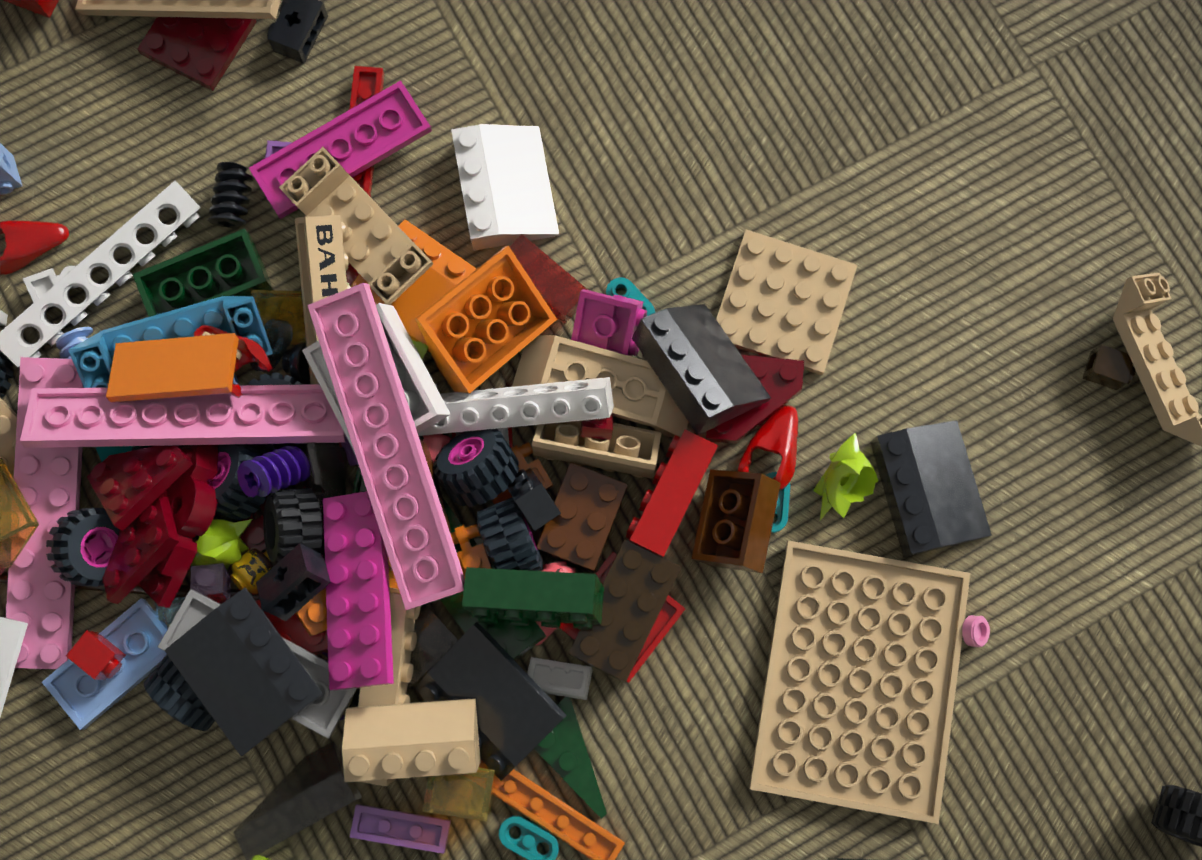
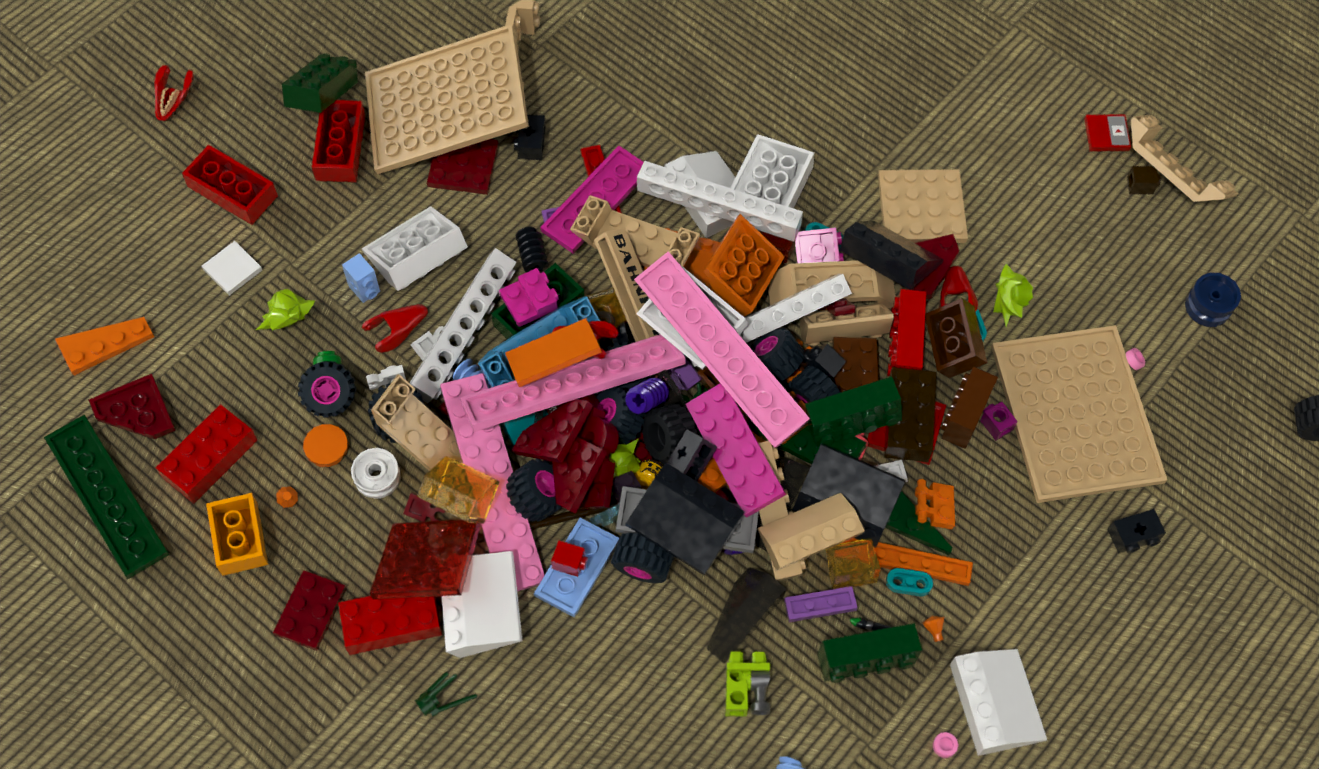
camera: 20 degrees left, 15 degrees down
(83, 140) = (415, 248): none -> white slope
(186, 270) = (529, 297): none -> dark pink plate
(493, 213) = (718, 200): none -> white brick
(588, 198) = (774, 171): none -> white slope
(617, 749) = (941, 504): none -> orange plate
(710, 626) = (967, 407): none -> reddish brown brick
(757, 664) = (996, 428): none -> magenta brick
(930, 487) = (1065, 285): black slope -> none
(1092, 276) = (1107, 132): none -> red tile
(1124, 584) = (1212, 299): none -> dark blue wheel

